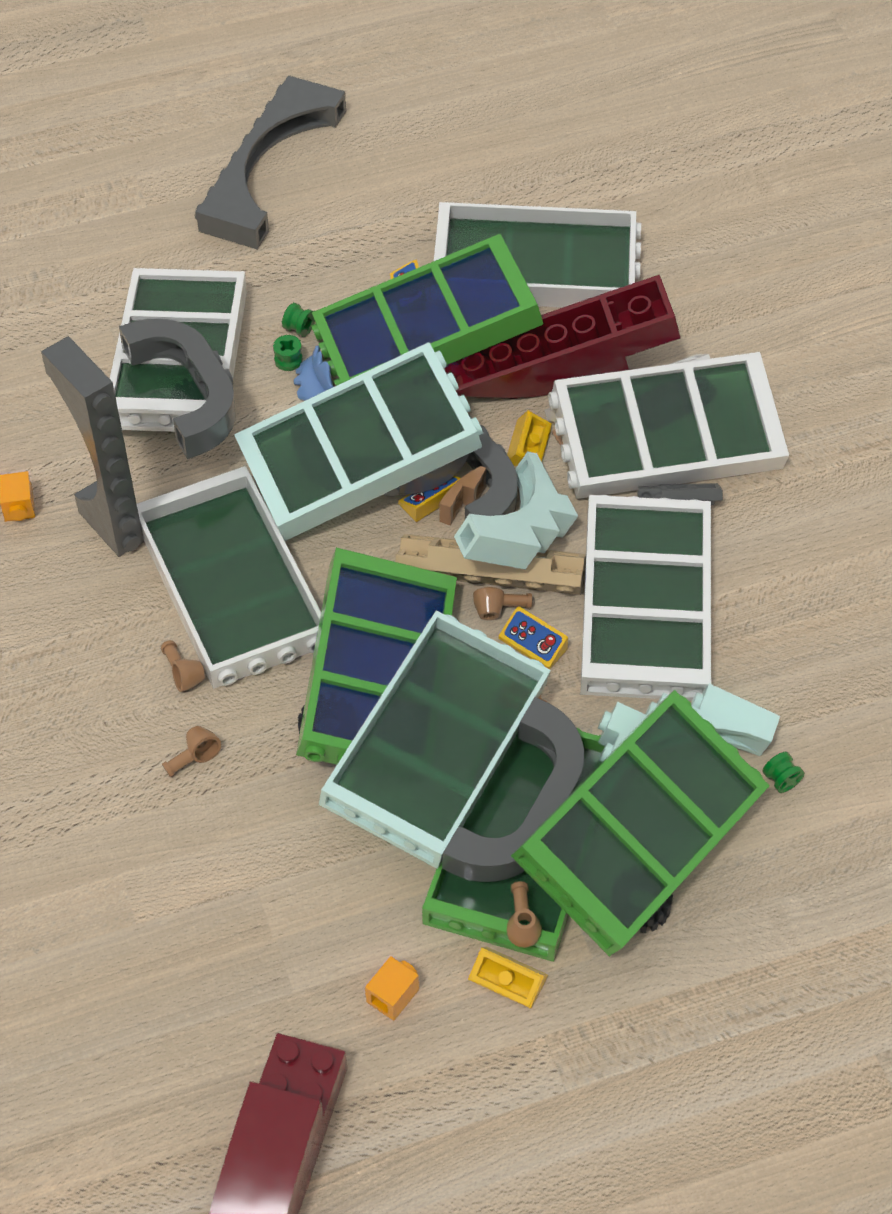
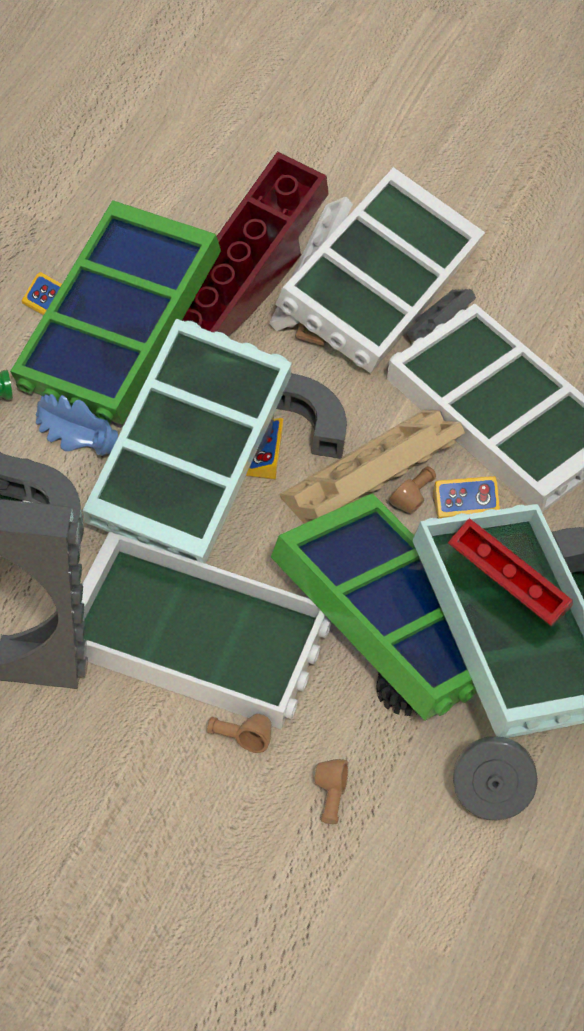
camera: 50 degrees left, 0 degrees up
(287, 352) = (25, 425): green wheel -> none
(295, 832) = (495, 778): none -> dark grey wheel
(460, 697) = (511, 572): none -> red slope
(462, 492) = (293, 431): medium nougat slope -> none
(519, 535) = (376, 399): light aqua arch -> none
(529, 435) = (281, 343): yellow slope -> none
(558, 250) = (152, 174): clear green window -> none

